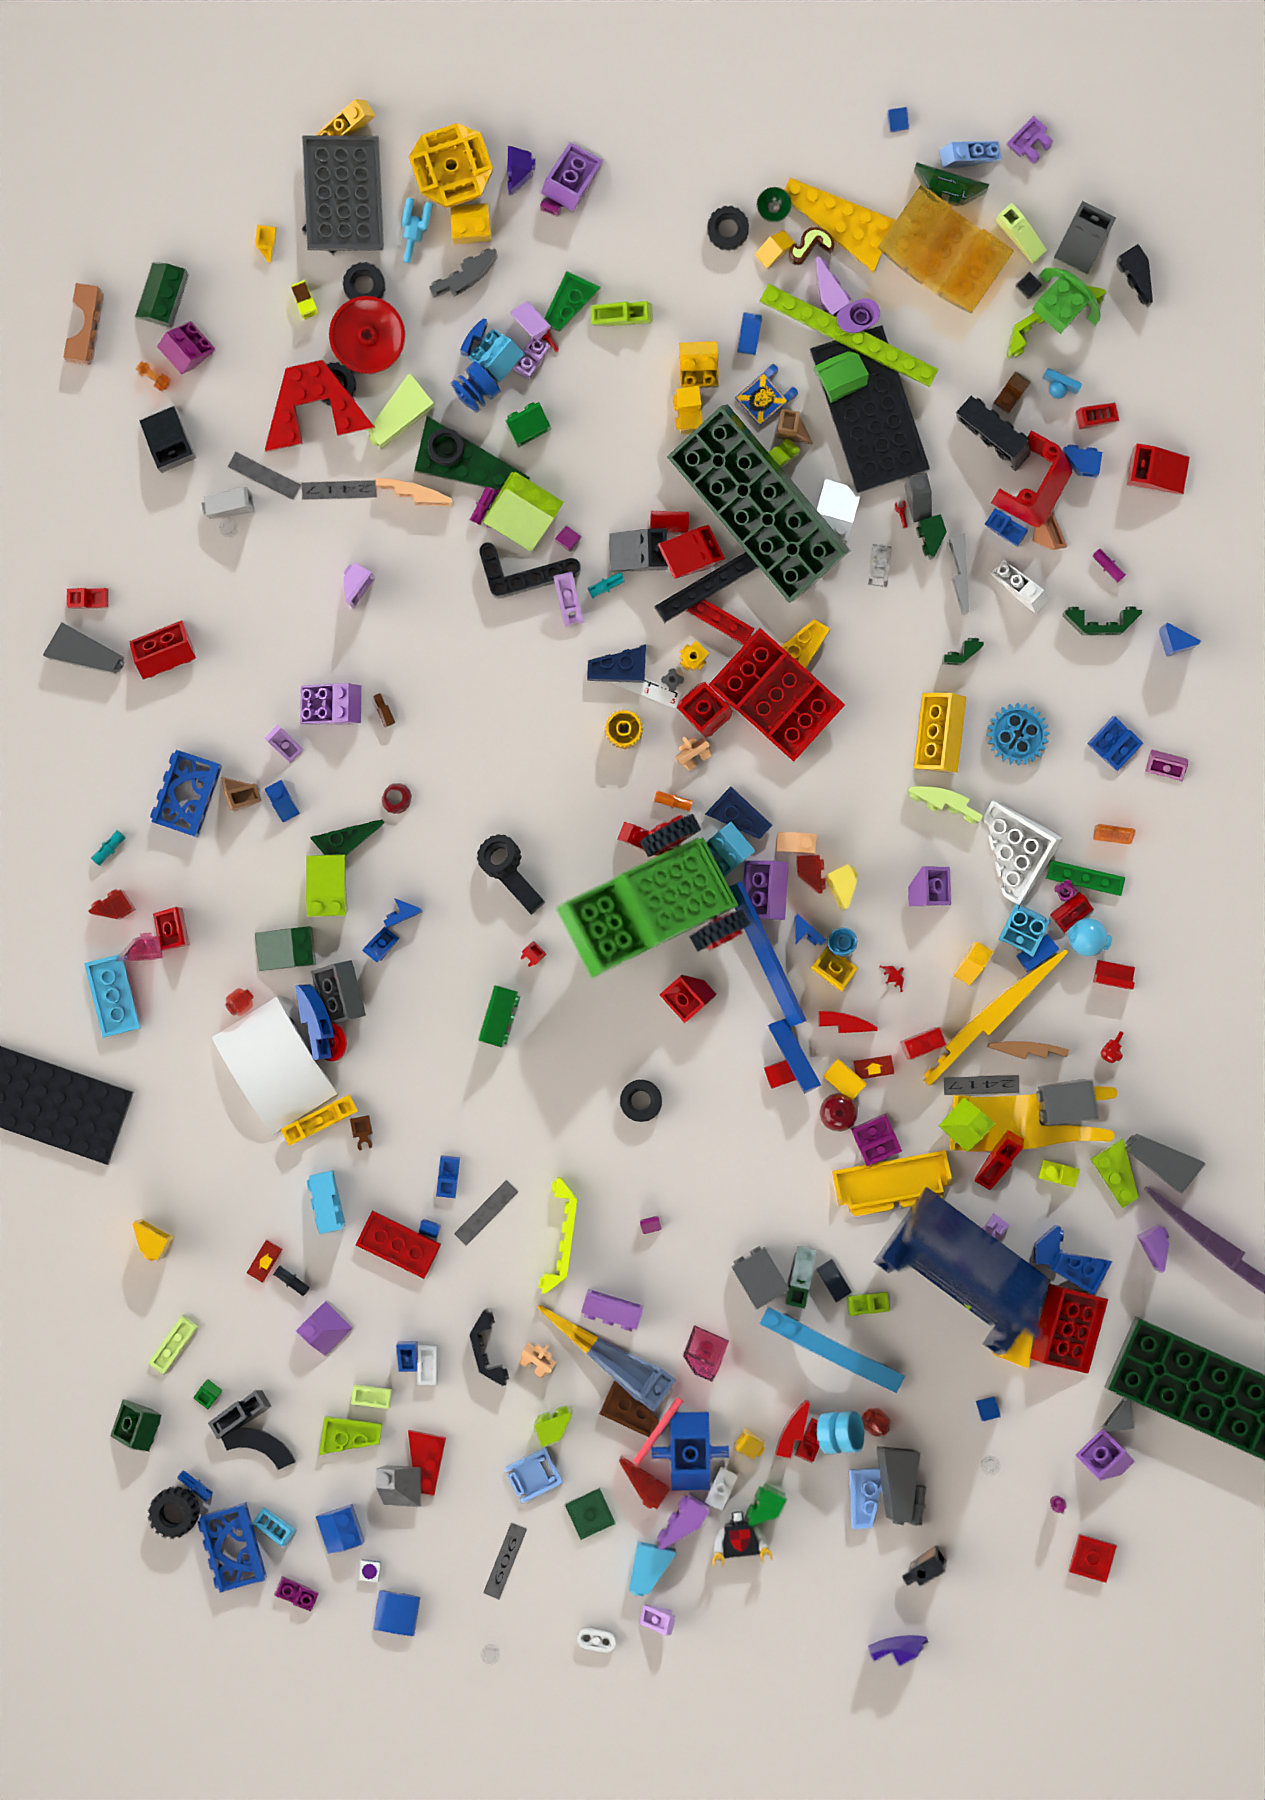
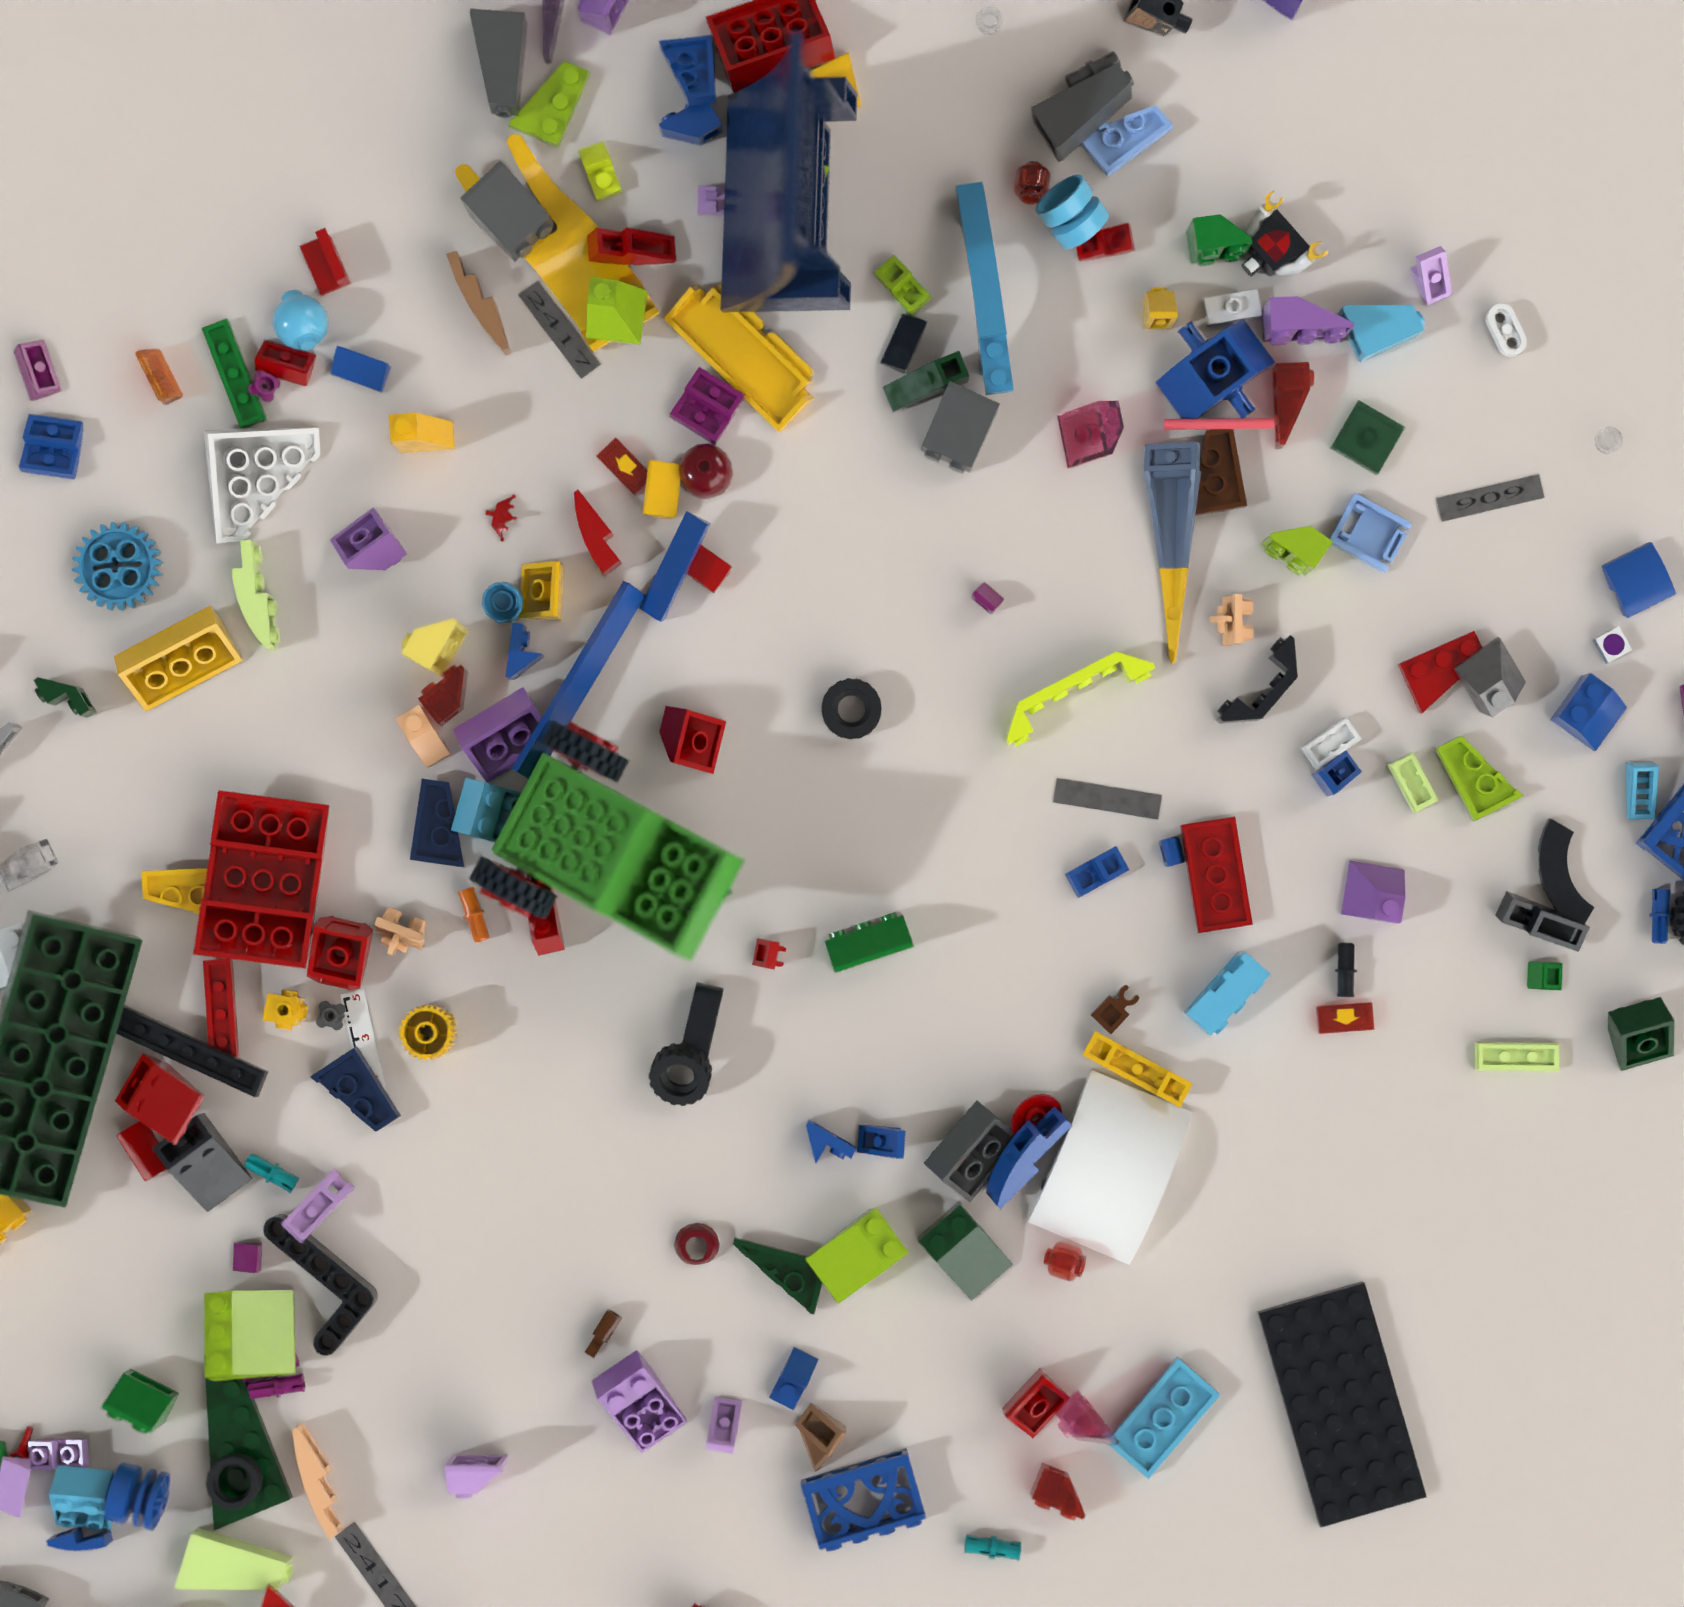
camera: 130 degrees left, 0 degrees up
(151, 1240) = (1415, 1167): yellow slope -> none
(612, 1310) = (1117, 573): medium lavender slope -> none
(793, 1430) = (1108, 271): red slope -> none
(923, 1043) = (555, 426): red brick -> none
(988, 1409) = (927, 66): blue slope -> none
(991, 1016) = (469, 370): yellow slope -> none
(1024, 929) = (347, 397): medium azure slope -> none
(1111, 1051) = (414, 207): red piece -> none

